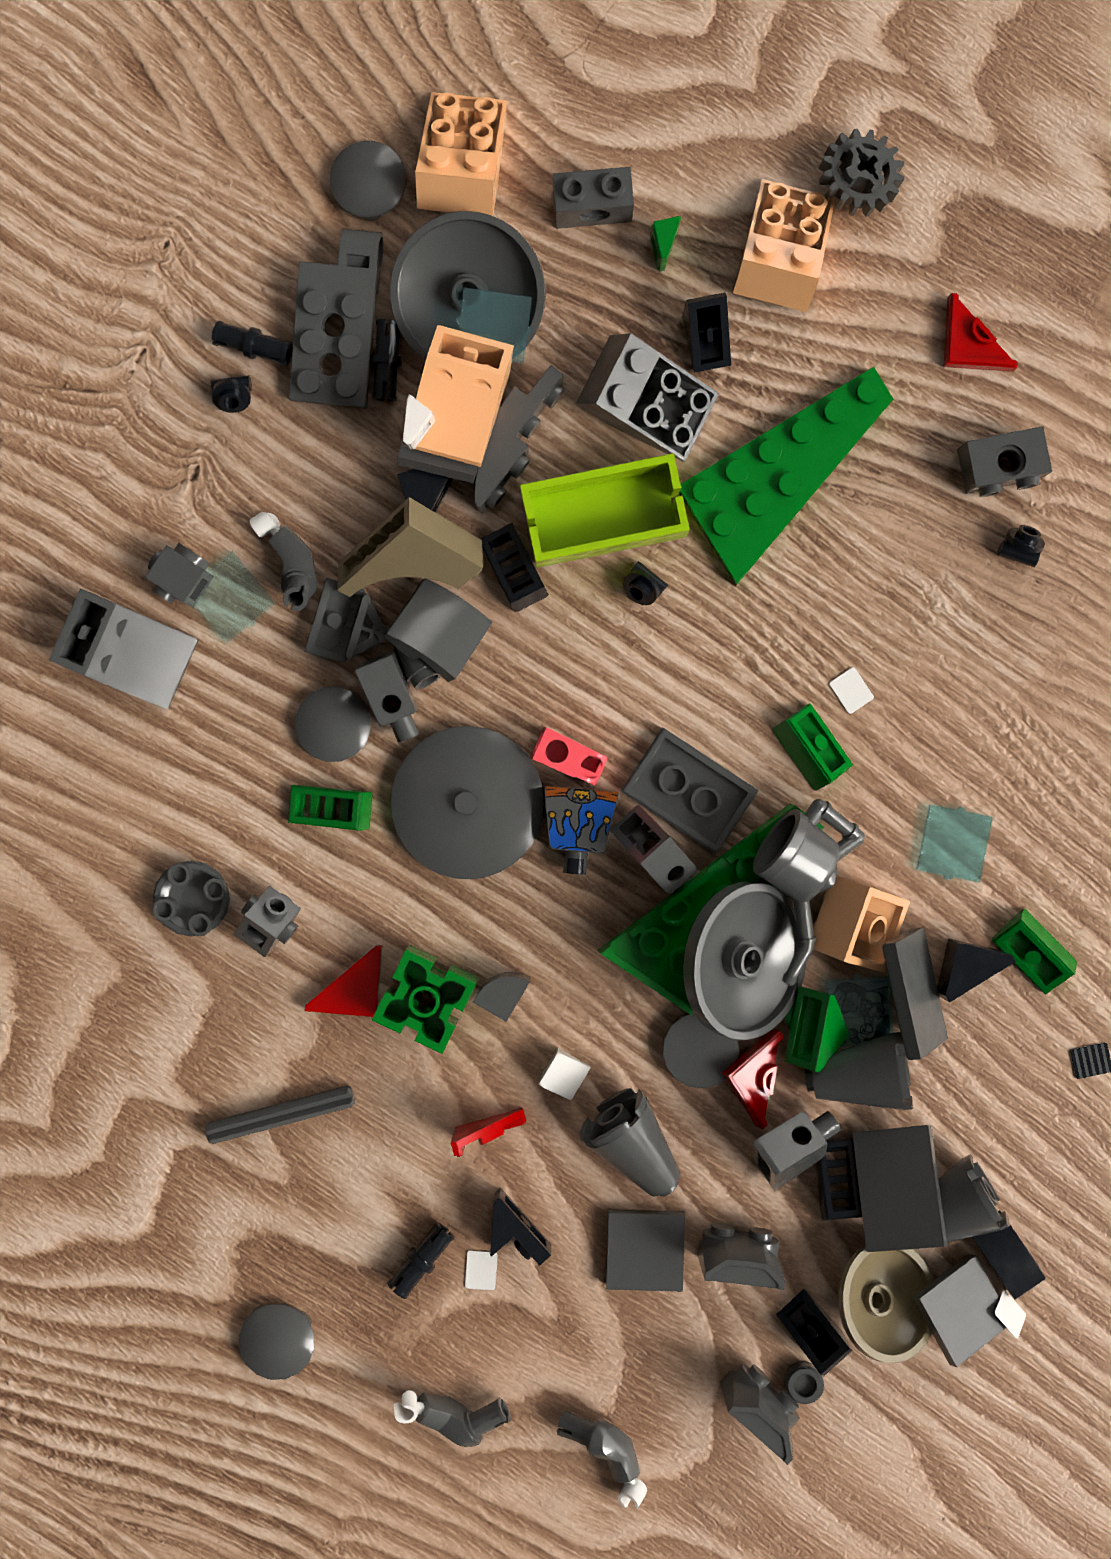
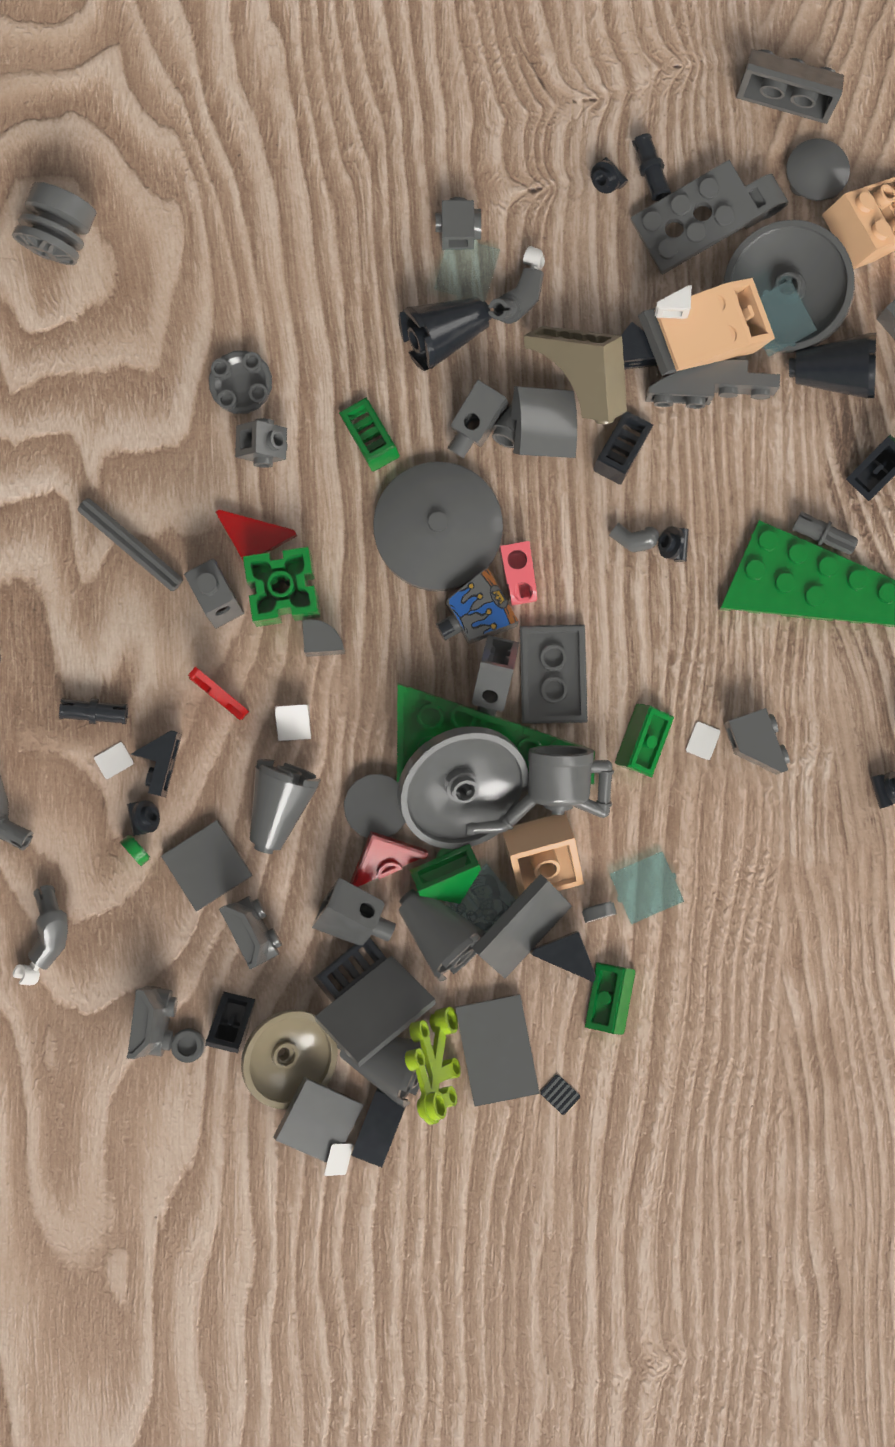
camera: 60 degrees right, 5 degrees down
(123, 649) = (382, 220): slope -> none
(265, 145) = (790, 85): none -> dark grey slope
(275, 664) = (442, 328): none -> black cone
(332, 724) = (428, 397): dark grey dish -> none
(344, 624) = (502, 358): dark grey slope -> none
(384, 1068) = (213, 593): none -> dark grey torso
(386, 360) = (703, 264): black pin -> none
(557, 1280) = (143, 817): none -> black plate
(582, 300) = (838, 366): none -> black cone
(584, 1311) = (135, 850): none -> green tile
(604, 510) = (705, 479): lime piece -> none
(615, 619) = (635, 541): none -> dark grey arm
(647, 396) = (806, 457): dark grey slope -> none
(734, 430) = (825, 533): none -> dark grey axle
(888, 641) = (756, 741): none -> dark grey slope
(949, 907) = (599, 911): none -> dark grey tile
(993, 1166) = (434, 1100): none -> lime plant
(1010, 1092) = (497, 1050): none -> dark grey tile

